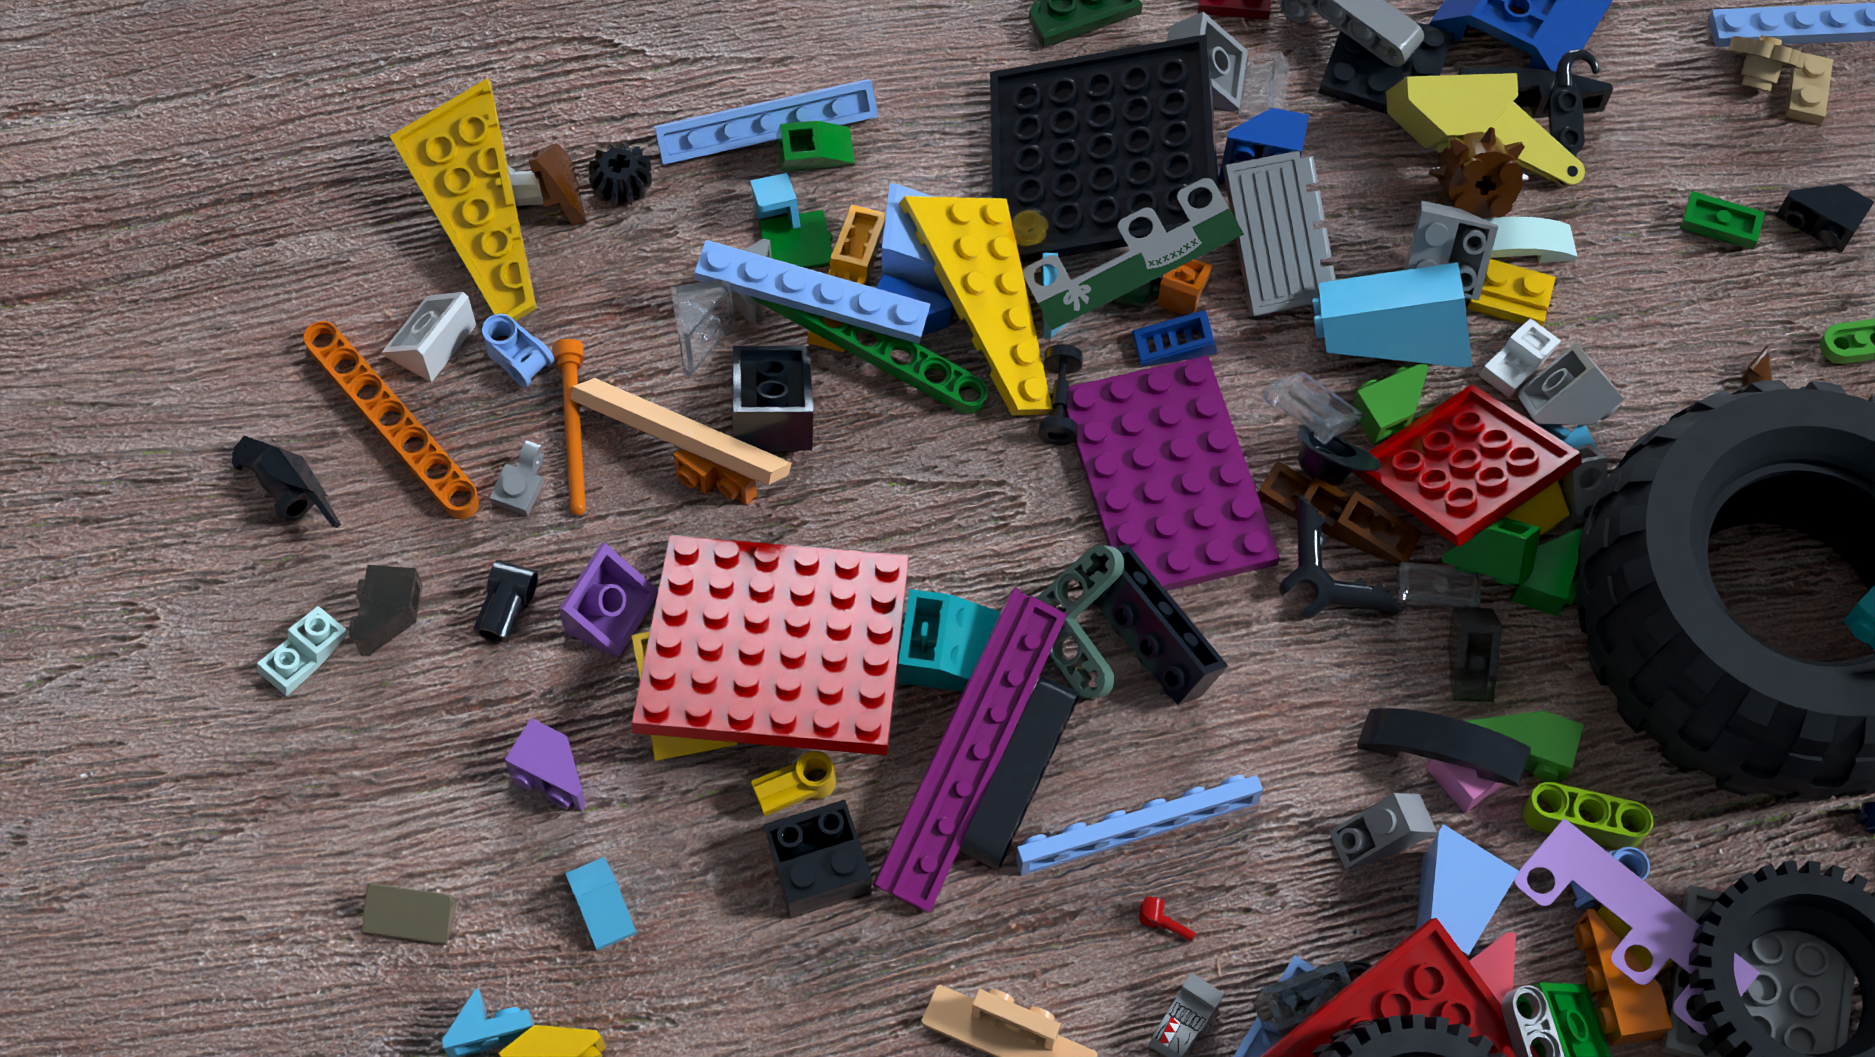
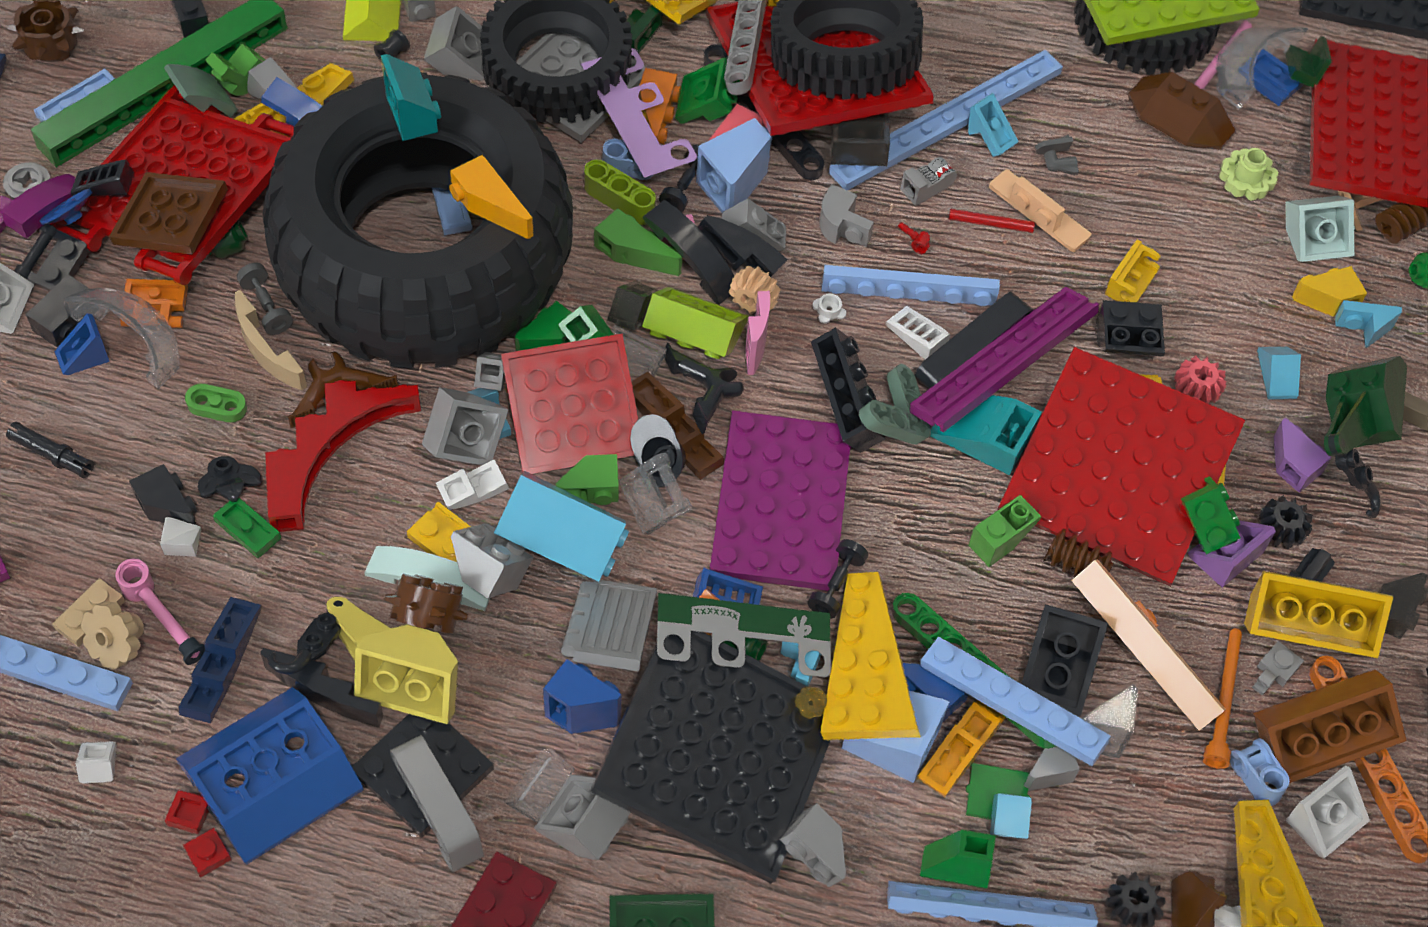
camera: 160 degrees left, 5 degrees down
(448, 415) = (1332, 725): none -> dark orange slope
(470, 851) = (1364, 410): none -> dark green slope
(484, 530) = (1318, 614): none -> yellow slope
(533, 658) = (1289, 521): none -> black gear
(635, 603) = (1210, 516): none -> green bracket
(689, 824) = (1200, 379): none -> coral gear
(789, 517) = (1074, 555): none -> reddish brown piece
(841, 972) = (1133, 274): none -> yellow hinge
(893, 511) = (1003, 530): none -> bright green slope
(966, 108) = (819, 844): none -> light grey slope
(1078, 992) = (991, 220): none -> red bar
(1094, 746) = (918, 343): none -> white slope
(1228, 744) = (829, 301): none -> white plate
(1285, 894) = (839, 219): none -> light grey brick
(1298, 661) = (757, 332): none -> bright pink slope
(1334, 720) = (748, 283): none -> light nougat gear
(1381, 773) = (741, 246): none -> black slope
(1386, 662) = (694, 322): none -> lime slope
(1515, 917) = (676, 196): none -> black wheel
(1648, 87) = (220, 660): none -> dark blue slope
(1712, 528) = (489, 197): none -> light orange slope
(1719, 295) = (319, 436): none -> red arch
(1775, 182) = (180, 538): none -> white slope
(1777, 256) = (228, 478): none -> black plate
(1785, 123) = (144, 592): none -> bright pink piece

